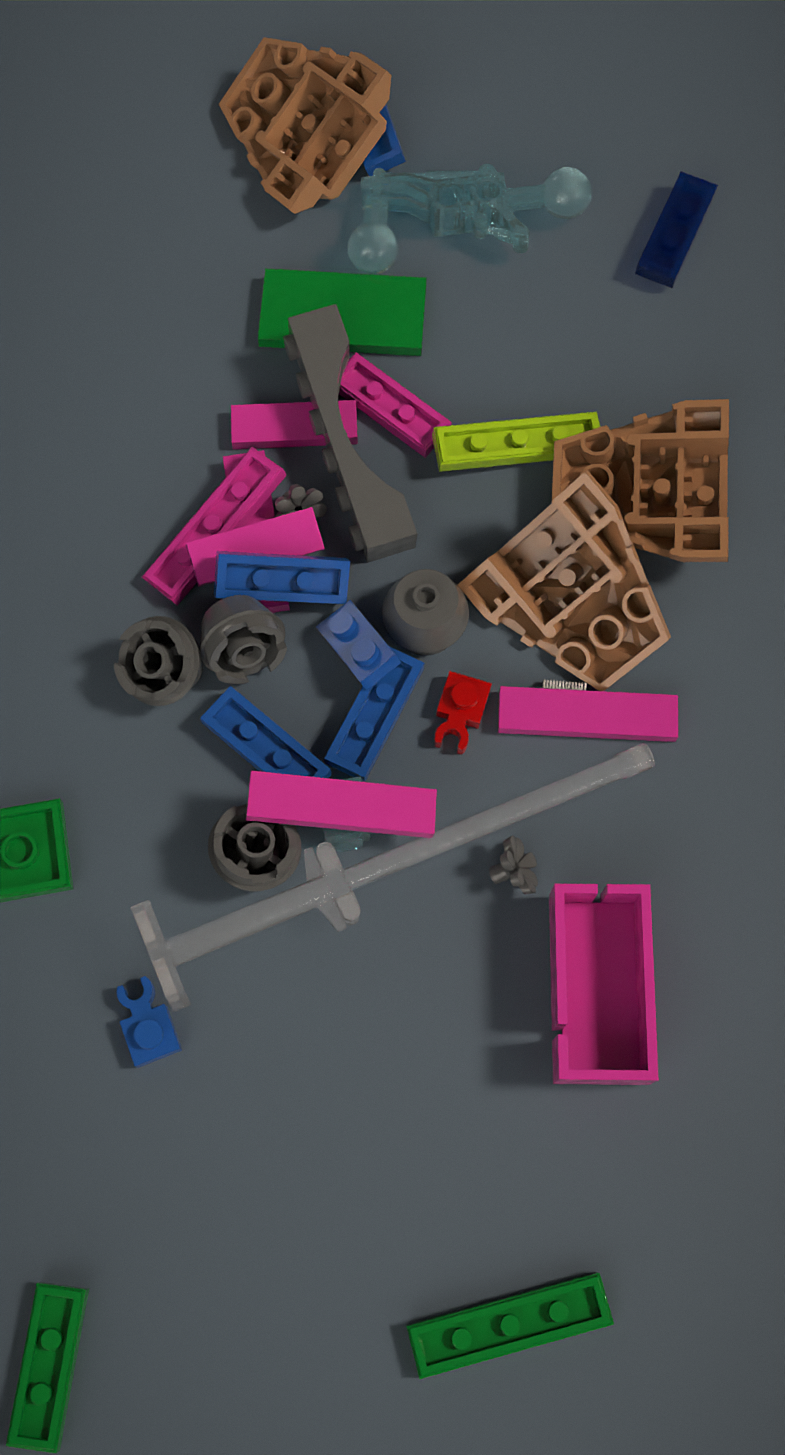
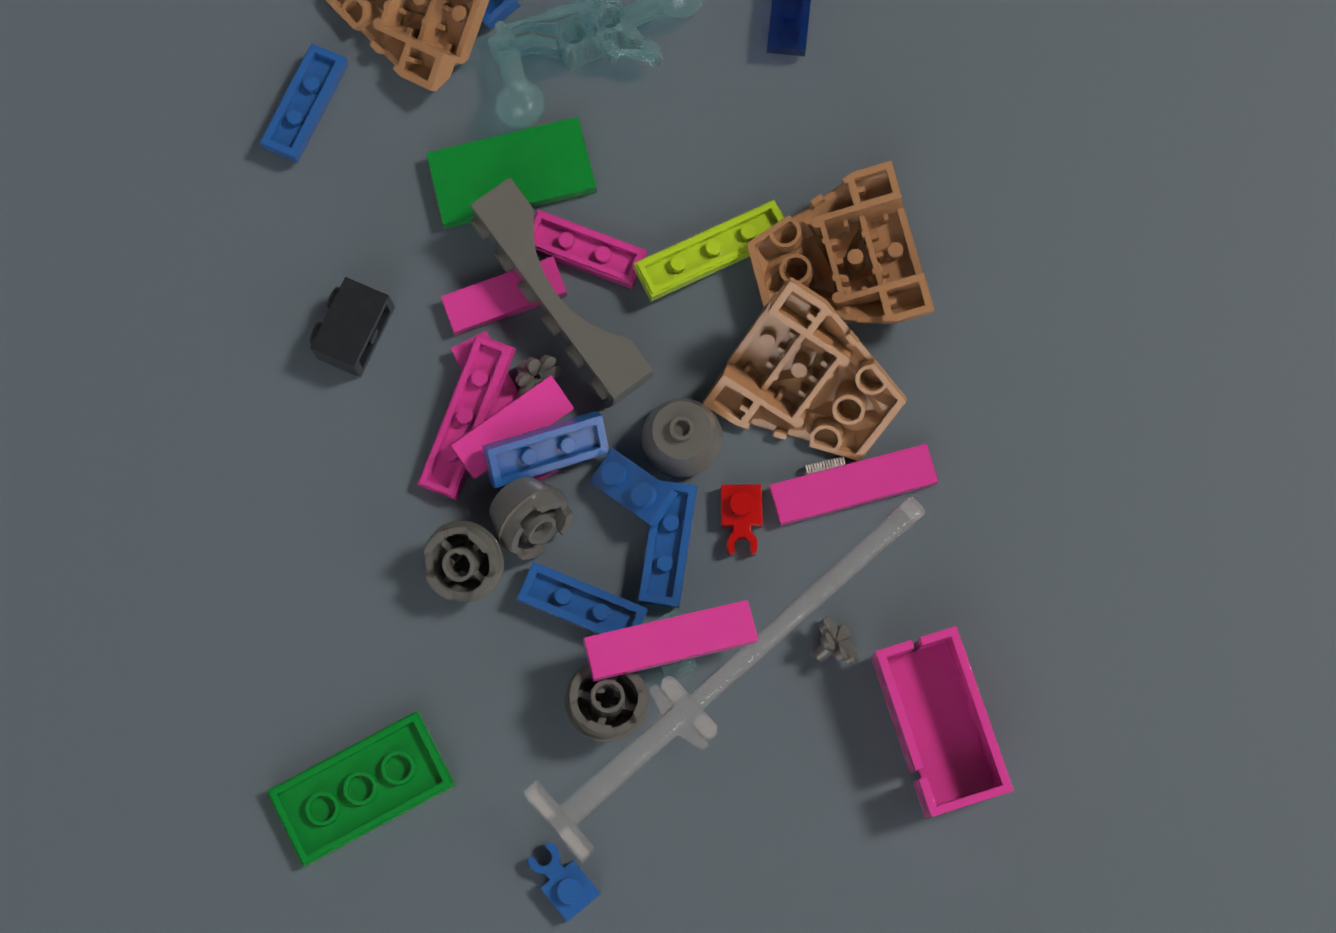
camera: 15 degrees left, 5 degrees up
(133, 406) = (351, 326): none -> black brick
(164, 190) = (304, 103): none -> blue plate

